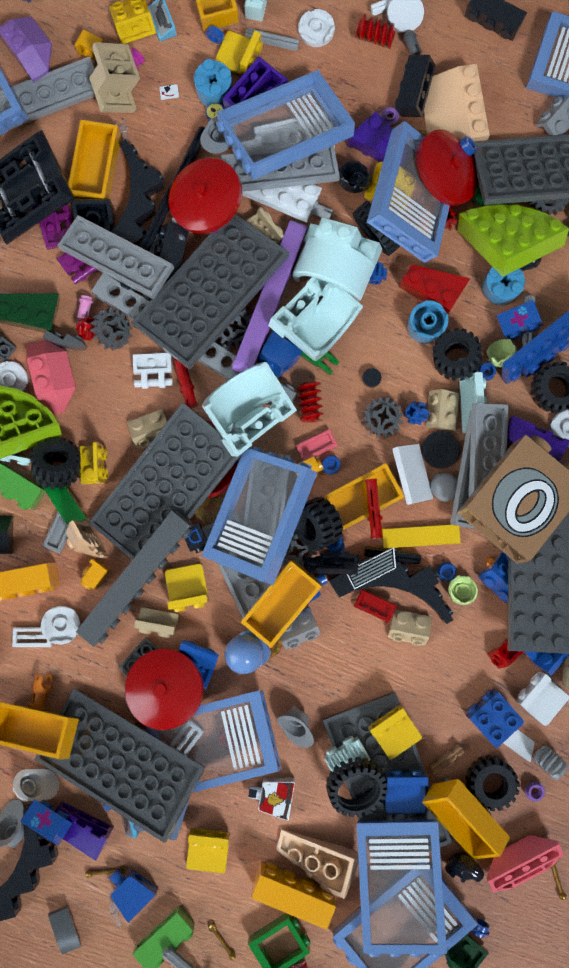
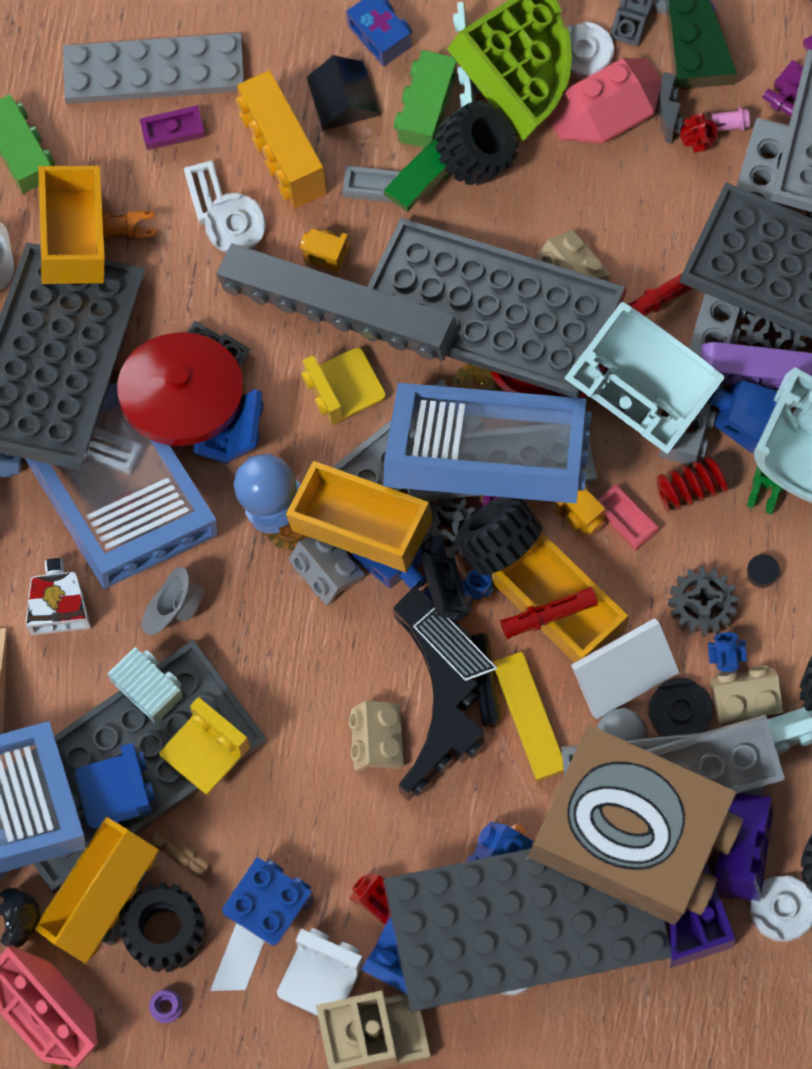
camera: 80 degrees right, 15 degrees down
(84, 539) = (376, 214): light nougat wedge -> none
(93, 464) = (493, 201): yellow bracket -> none
(111, 329) = (708, 151): dark grey gear -> none
(152, 364) = (673, 237): white plate -> none
(157, 621) = (279, 356): tan bracket -> none
(196, 540) = (424, 371): black brick -> none
(331, 464) = (601, 547): blue tile -> none
(360, 804) = (72, 699): black tyre -> none
(375, 606) = (395, 673): red plate -> none
(446, 571) = (483, 770): blue plate -> none
(462, 590) = (460, 799): yellowish green hair -> none
(550, 762) = (219, 1010): light grey gear -> none

